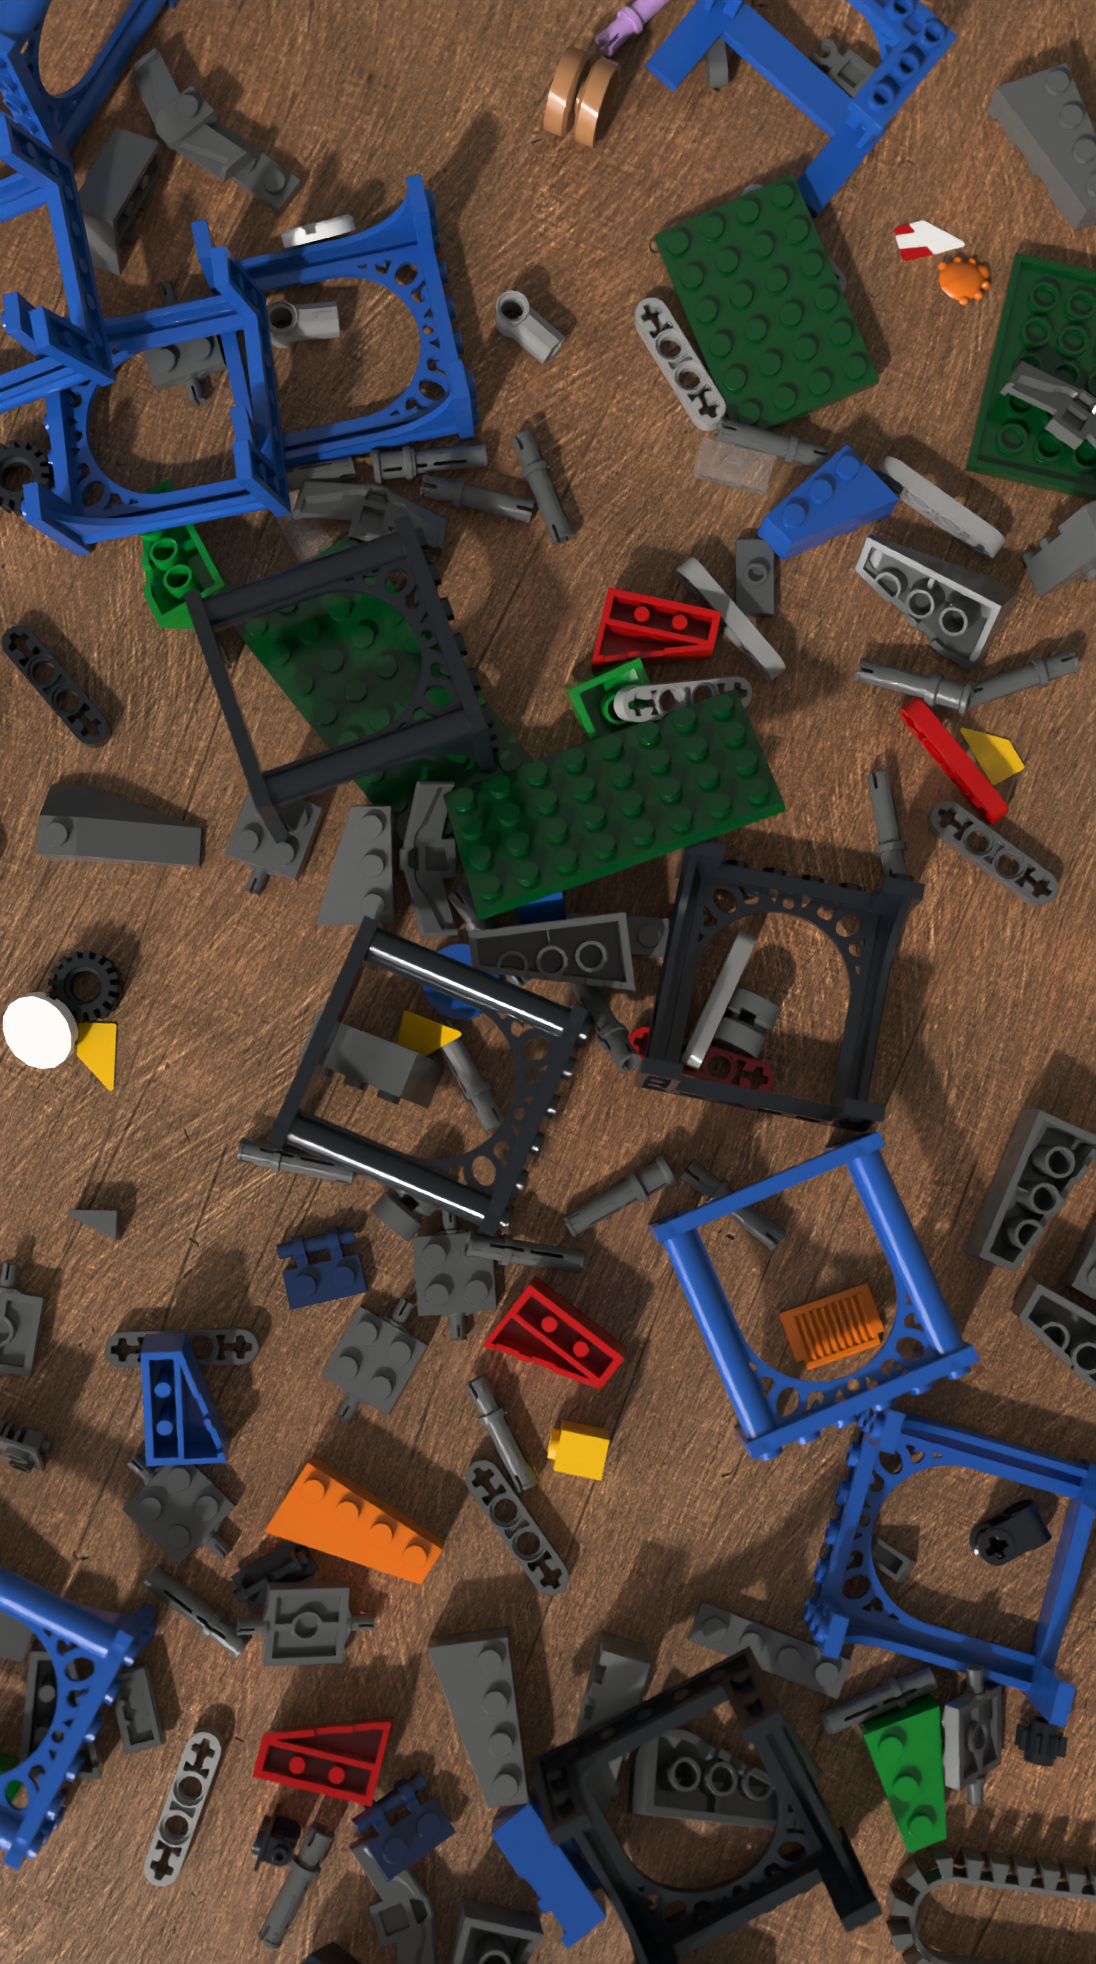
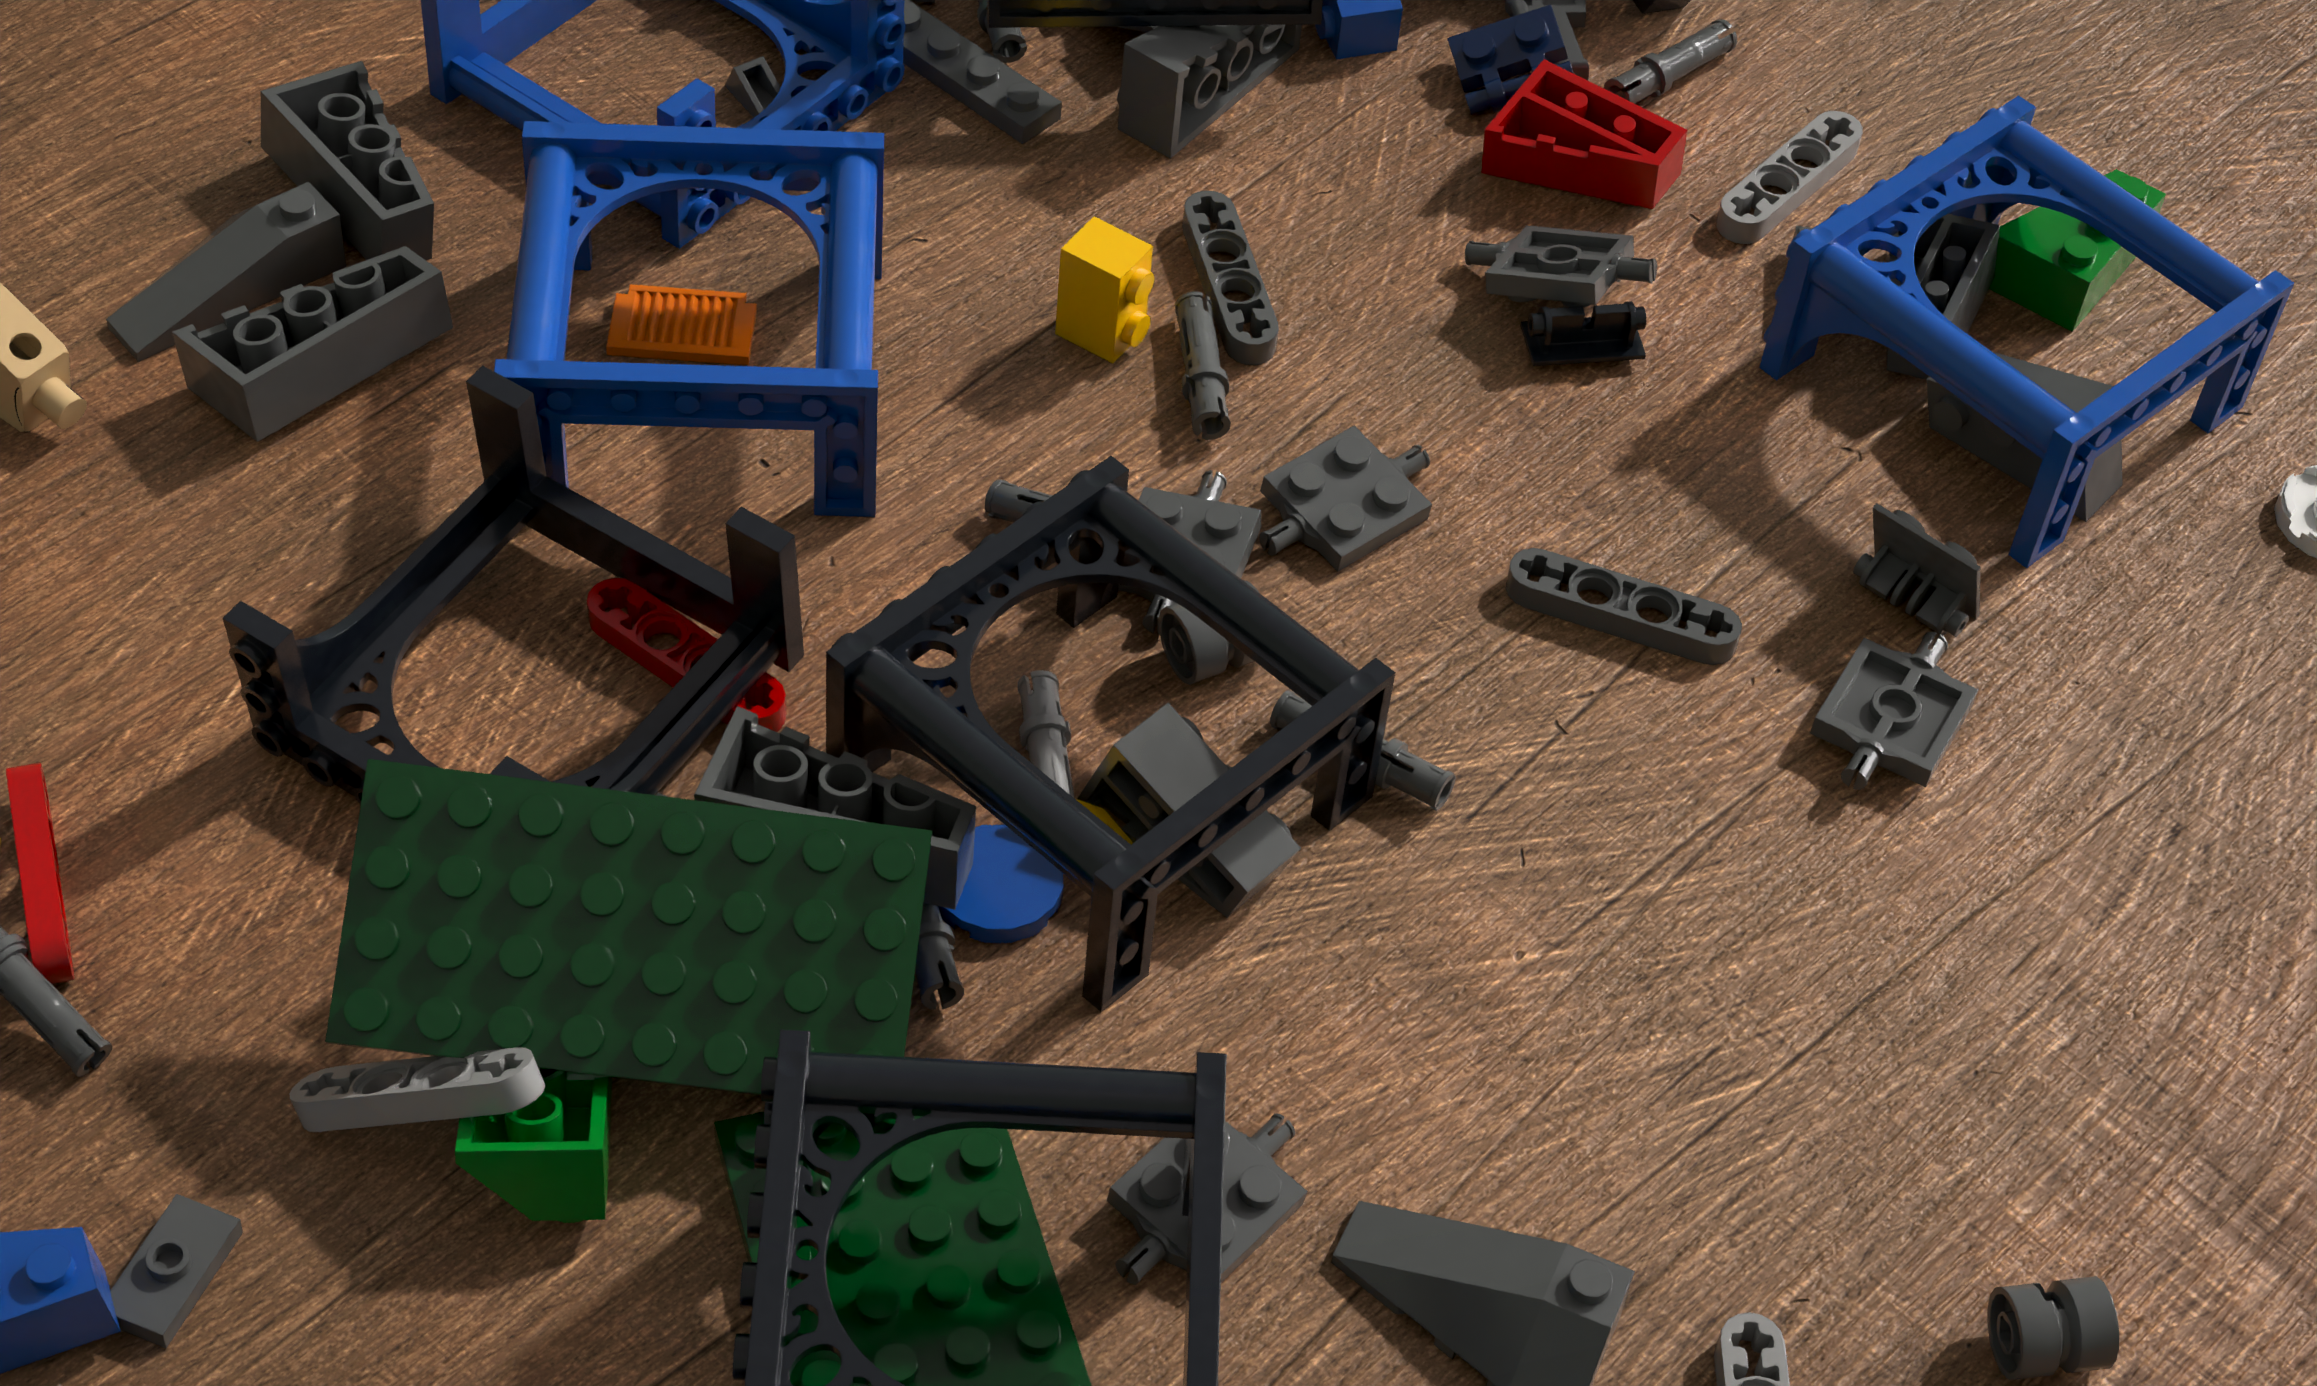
camera: 165 degrees left, 35 degrees down
(40, 1030) = (1714, 1042): white tile -> none
(97, 1050) = (1625, 1014): yellow sticker -> none
(105, 1221) = (1700, 792): dark grey piece -> none
(109, 979) = (1608, 1120): black tyre -> none
(177, 1406) = (1652, 515): blue wedge -> none
(179, 1509) = (1692, 445): dark grey plate -> none
(196, 1610) = (1690, 318): dark grey pin -> none
(276, 1840) = (1689, 73): black hinge -> none
(322, 1280) = (1380, 619): dark blue plate -> none
(354, 1524) = (1454, 338): orange wedge -> none
(363, 869) = (1098, 1021): dark grey wedge -> none
(428, 859) = (987, 1016): dark grey plate -> none
(483, 1699) = (1354, 132): dark grey wedge -> none
(556, 1335) = (1071, 413): red wedge -> none
(612, 1033) = (803, 676): dark grey pin -> none
(635, 1188) = (867, 544): dark grey pin -> none
(653, 630) = (406, 1227): red wedge -> none
(718, 999) = (614, 695): light grey beam -> none
(732, 620) = (257, 1213): light grey beam -> none
(741, 1035) = (596, 655): dark grey wheel -> none
(747, 1217) = (738, 476): dark grey pin -> none
(890, 846) = (218, 803): dark grey pin -> none
(988, 859) = (66, 744): dark grey beam -> none
(1016, 1530) = (586, 55): black piece -> none

